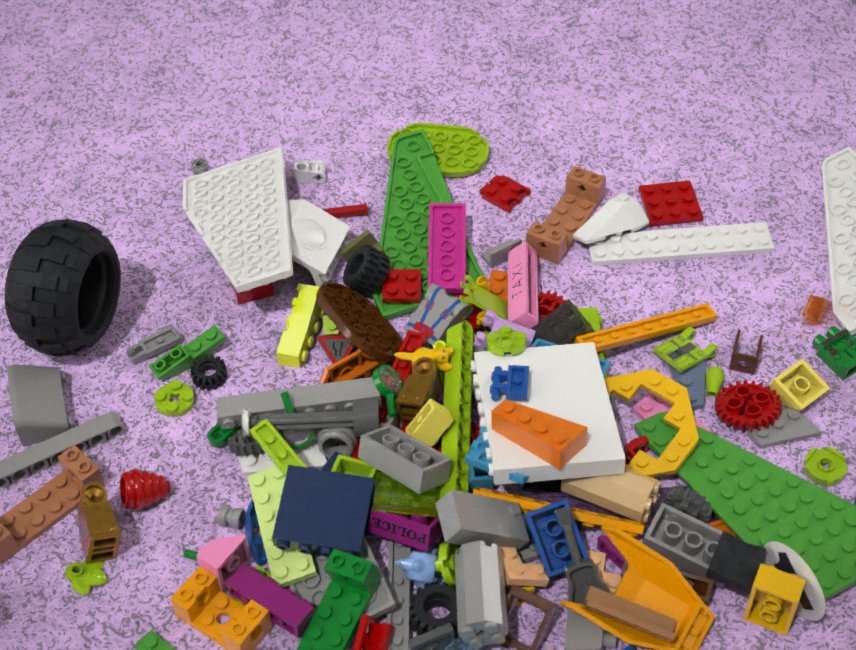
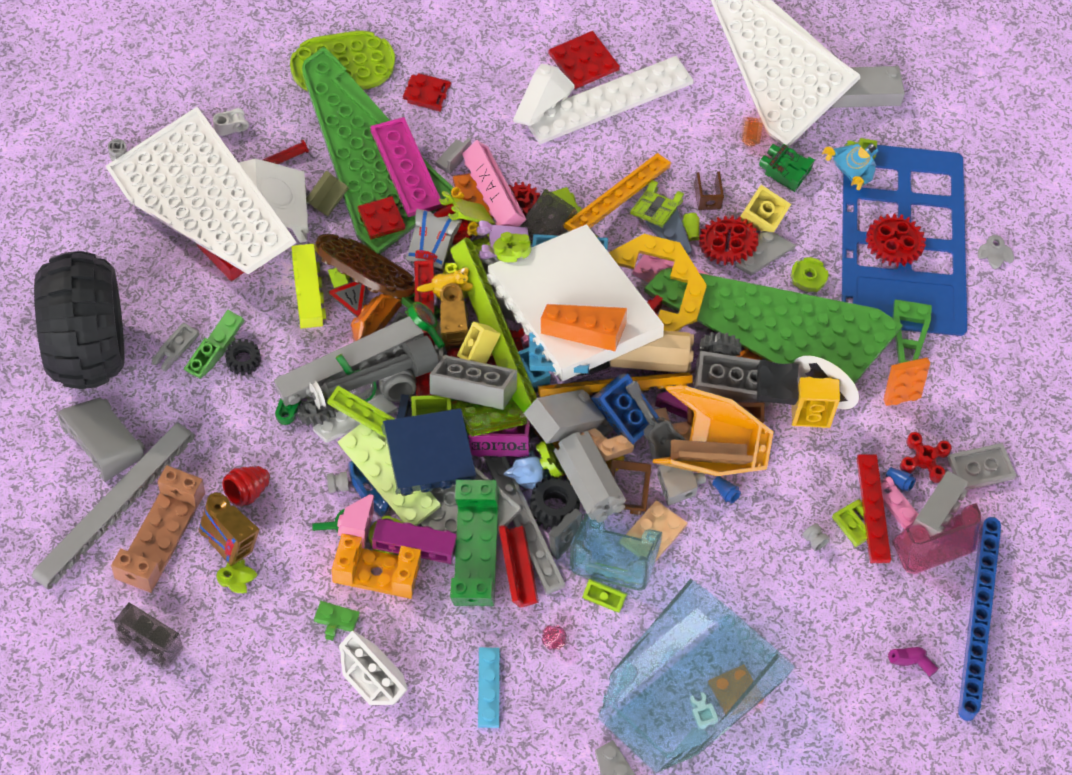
camera: 30 degrees left, 10 degrees up
(174, 389) = (221, 382): lime plate -> none
(366, 270) = (343, 212): black tyre -> none
(516, 385) = (543, 286): blue plate -> none
(581, 198) = (498, 99): nougat plate -> none

